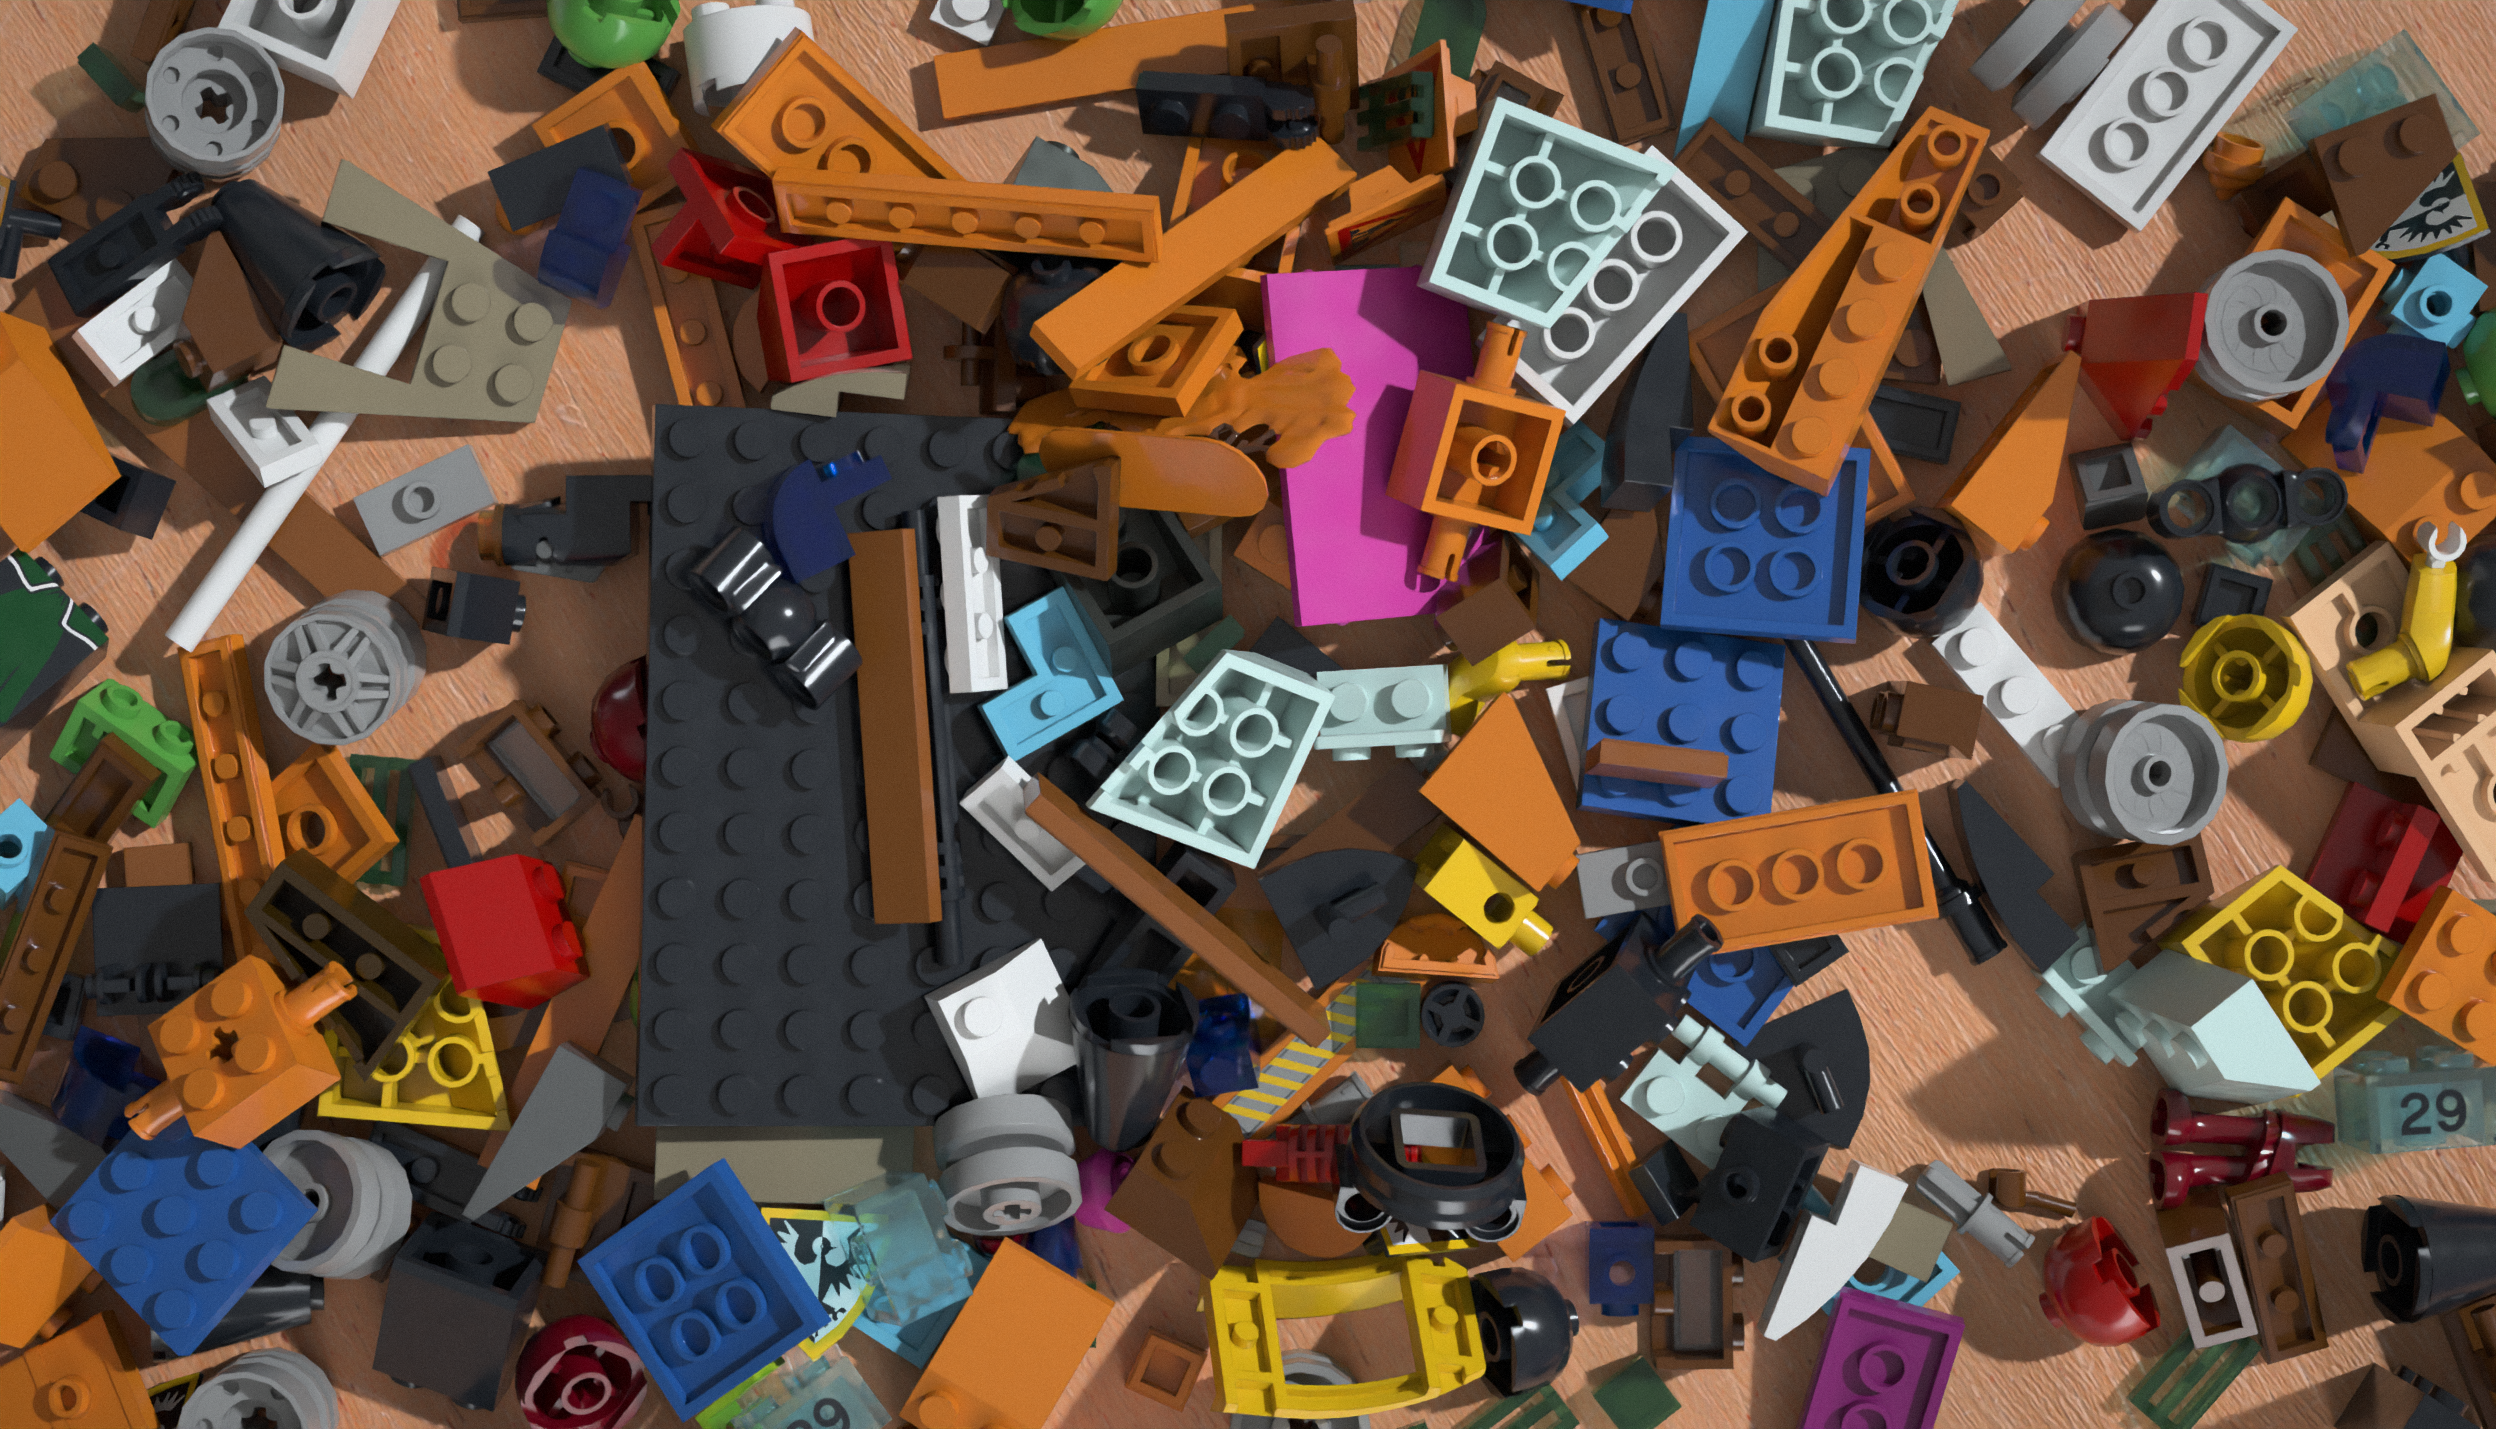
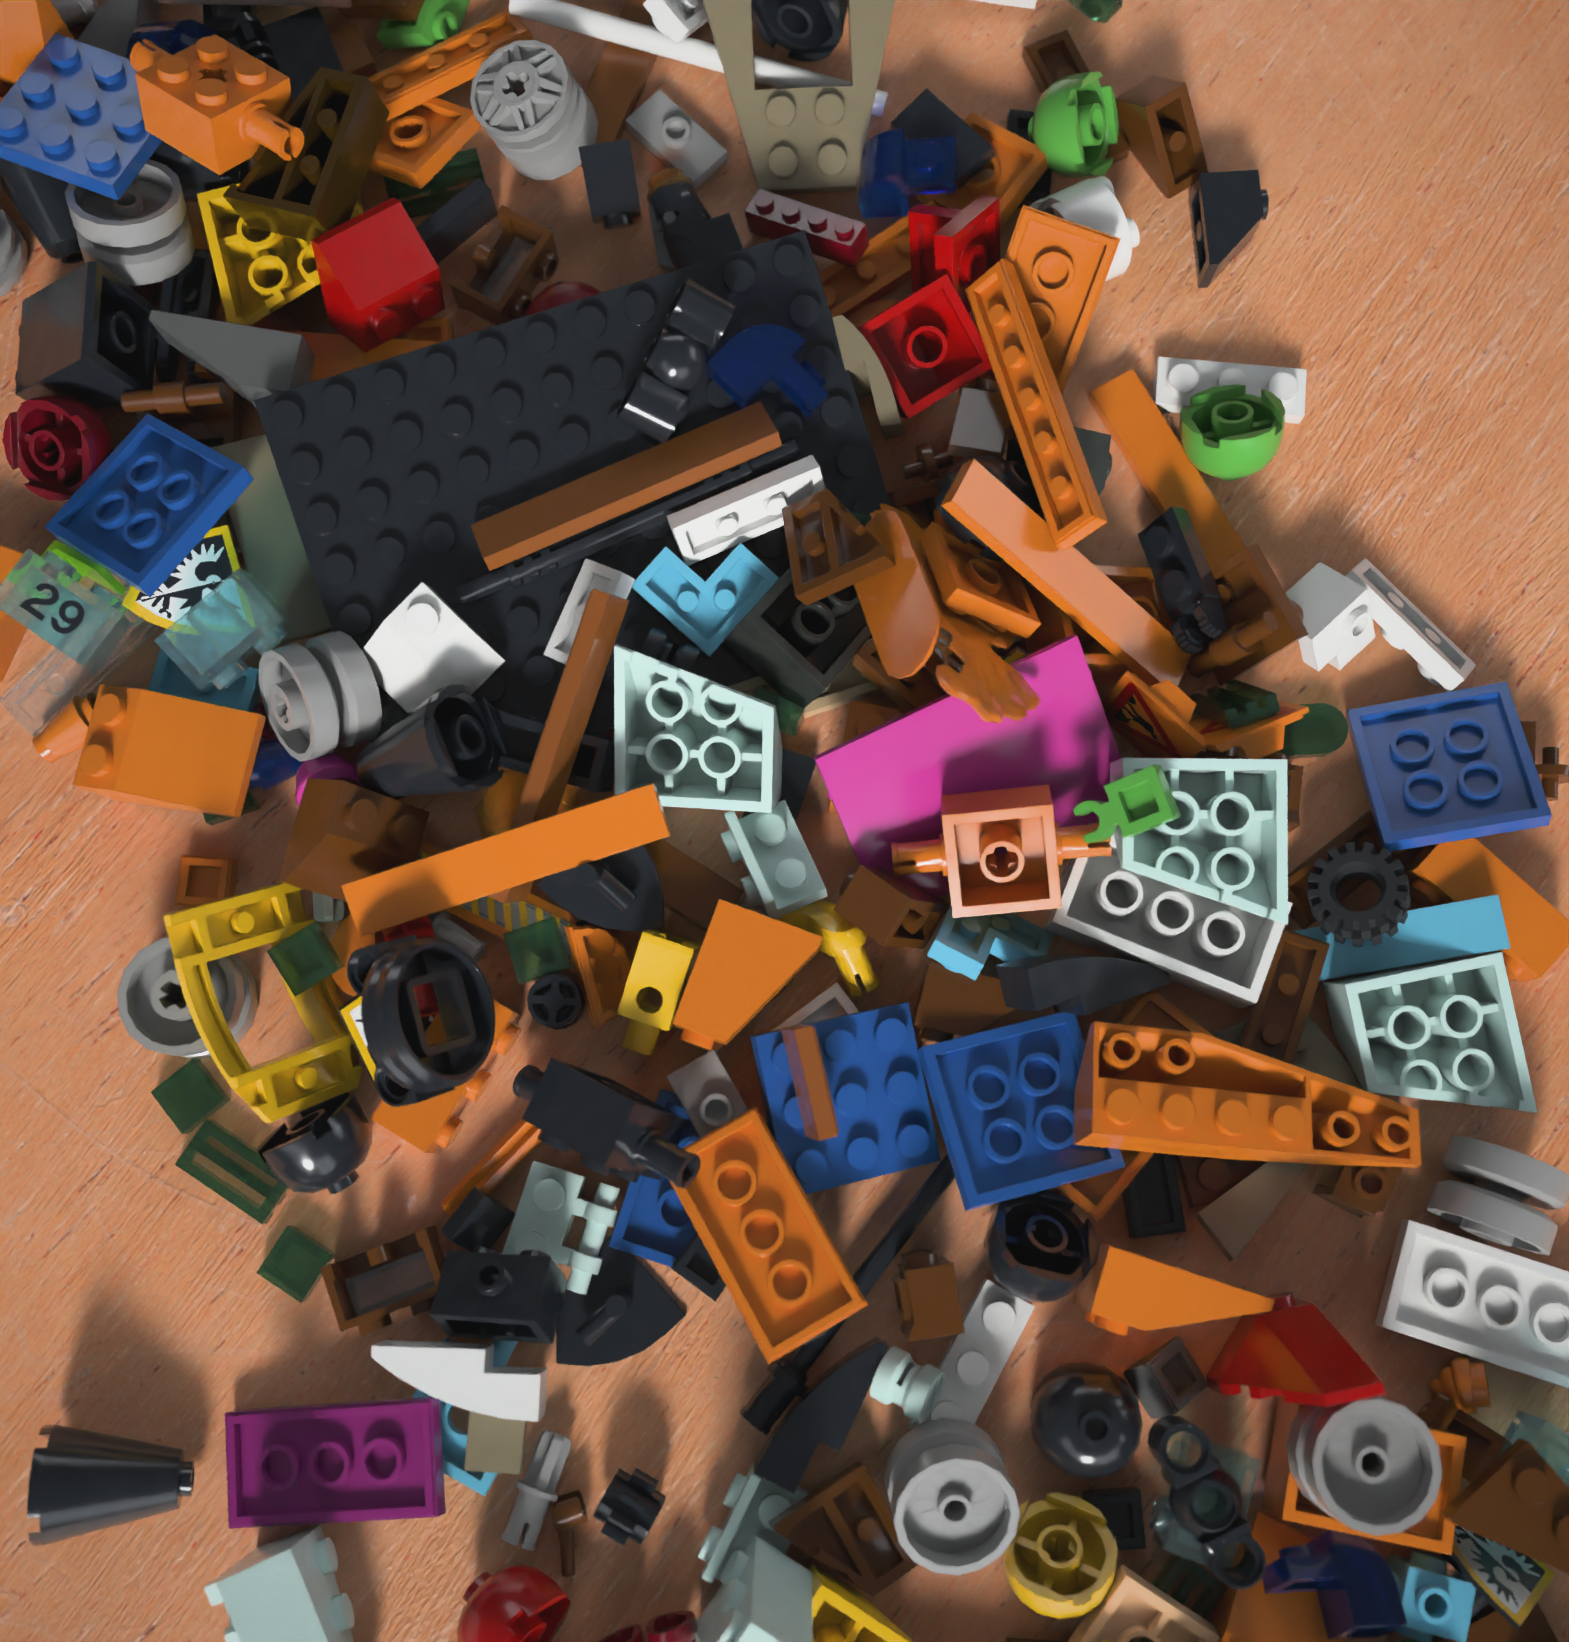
camera: 70 degrees right, 10 degrees down
(612, 385) = (827, 232): none -> dark red piece
(1225, 1047) = (465, 821): clear blue brick -> none
(1287, 1013) = (506, 859): none -> orange tile
(1303, 1279) = (305, 958): none -> clear green tile
(1489, 294) = (1134, 804): none -> bright green plate
(1614, 1242) = (418, 1208): clear blue brick -> none
(1629, 69) = (1363, 924): none -> black tyre
(2011, 773) = (907, 1384): none -> light aqua wheel
(2027, 1119) = (629, 1506): none -> black gear

